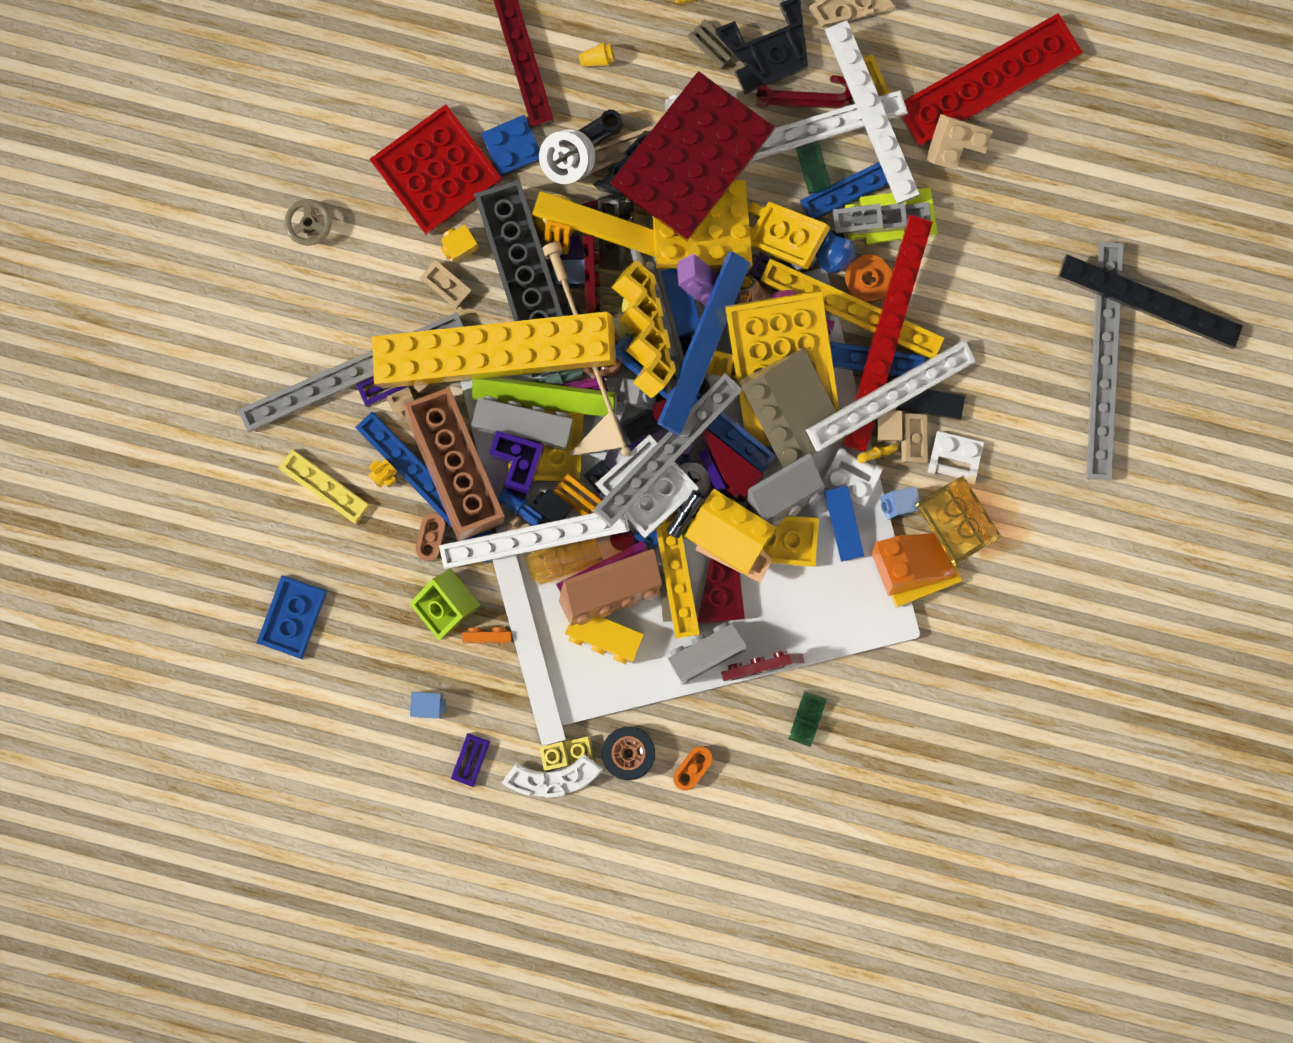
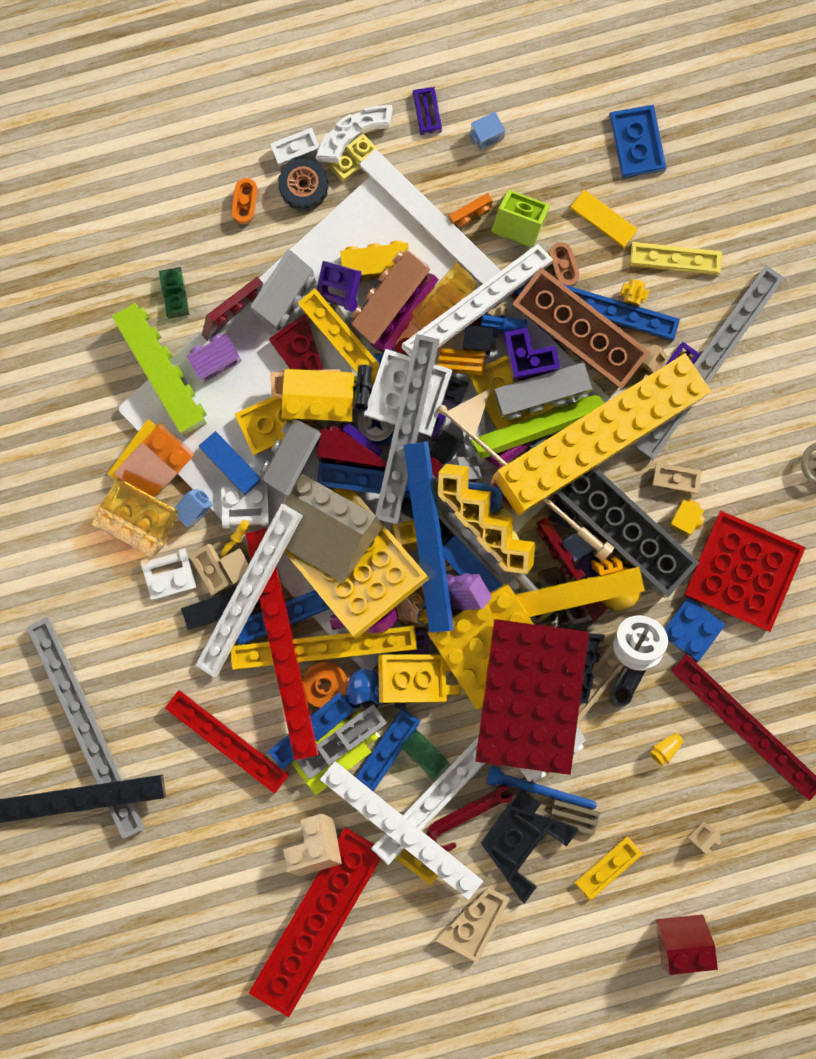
camera: 150 degrees right, 0 degrees up
(367, 561) = (604, 218): none -> yellow tile
(615, 794) = (295, 147): none -> white plate
(647, 633) = (341, 278): none -> dark purple plate
(765, 113) = (497, 777): none -> blue piece
(805, 630) = (213, 357): none -> medium lavender brick
(861, 646) = (159, 369): none -> lime brick
(887, 245) = (322, 720): none -> blue tile
(983, 278) = (227, 741): none -> red plate

